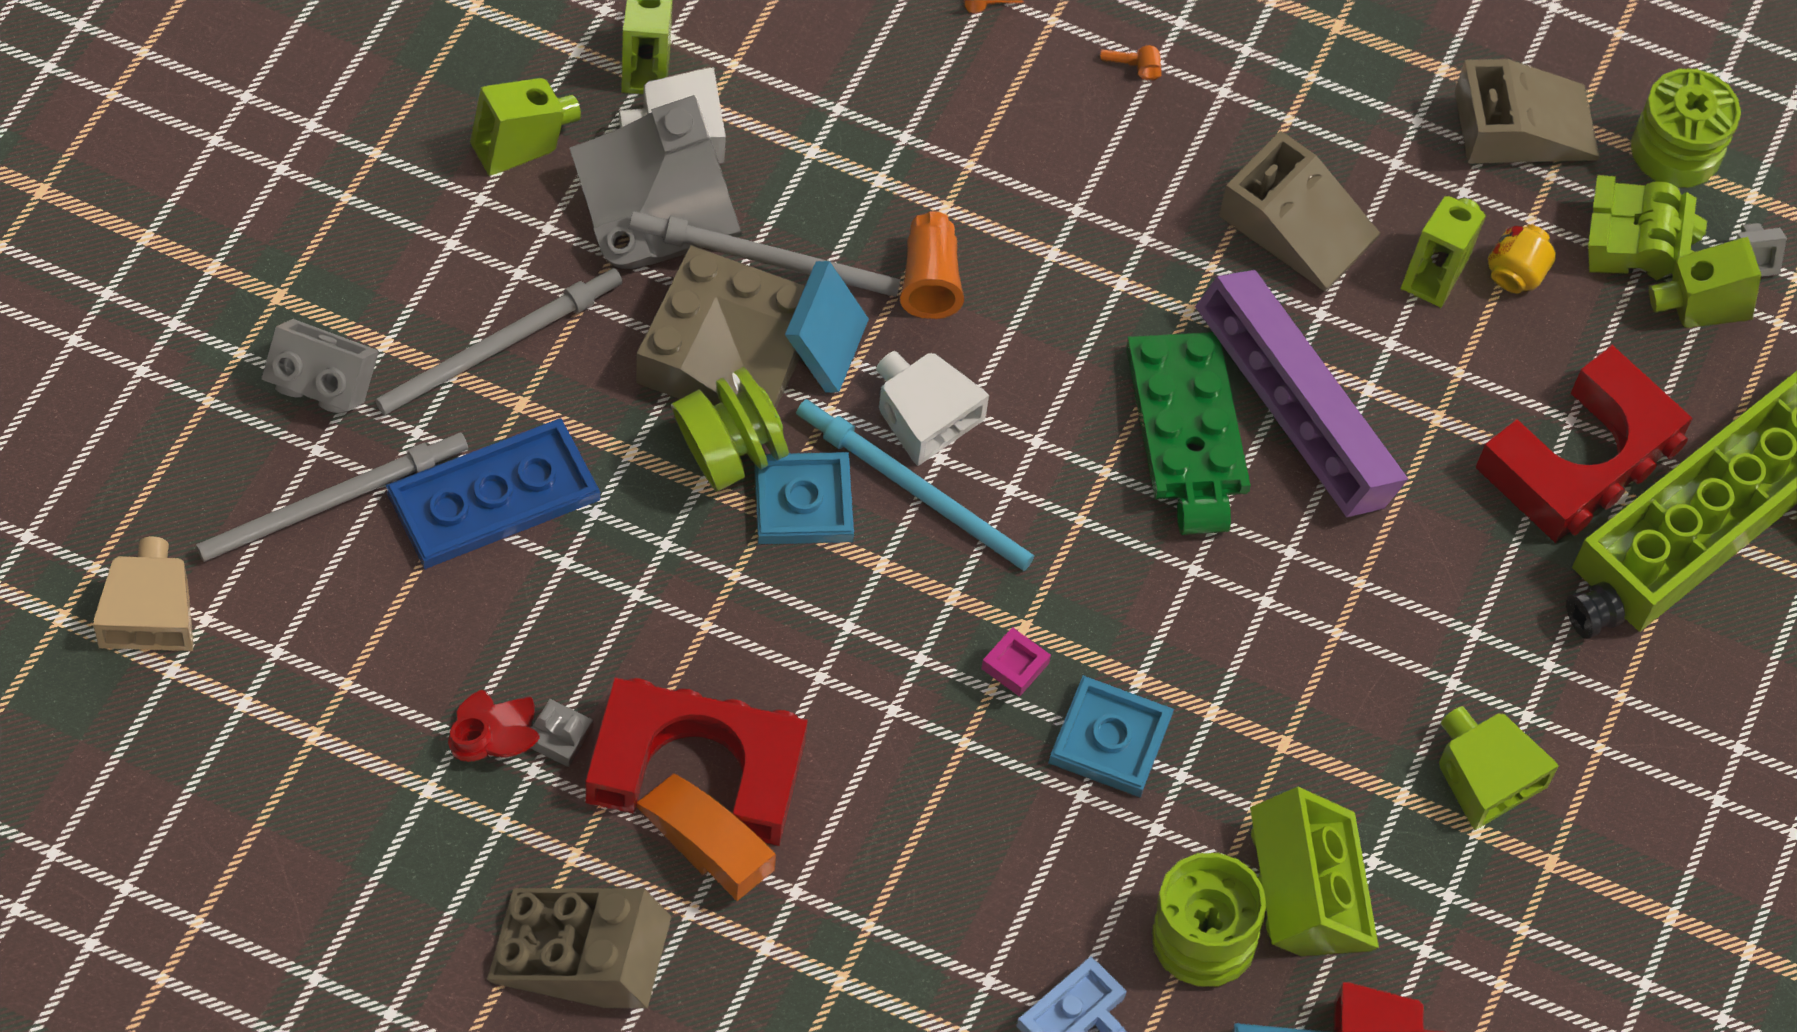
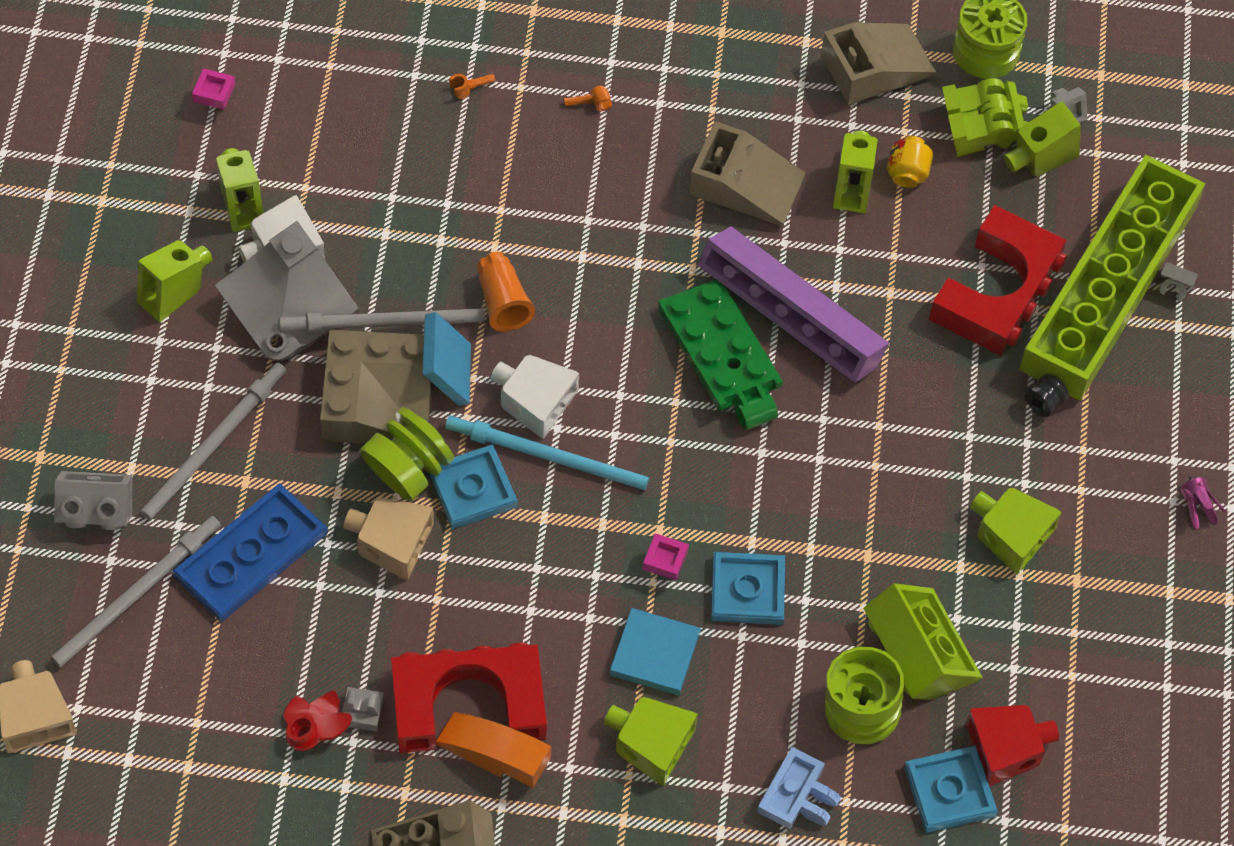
camera: 15 degrees left, 0 degrees up
(678, 524) = (392, 533): none -> tan torso
(915, 884) = (652, 735): none -> lime torso
(960, 778) = (655, 651): none -> dark azure tile
(1753, 797) = (1197, 491): none -> flat silver piece

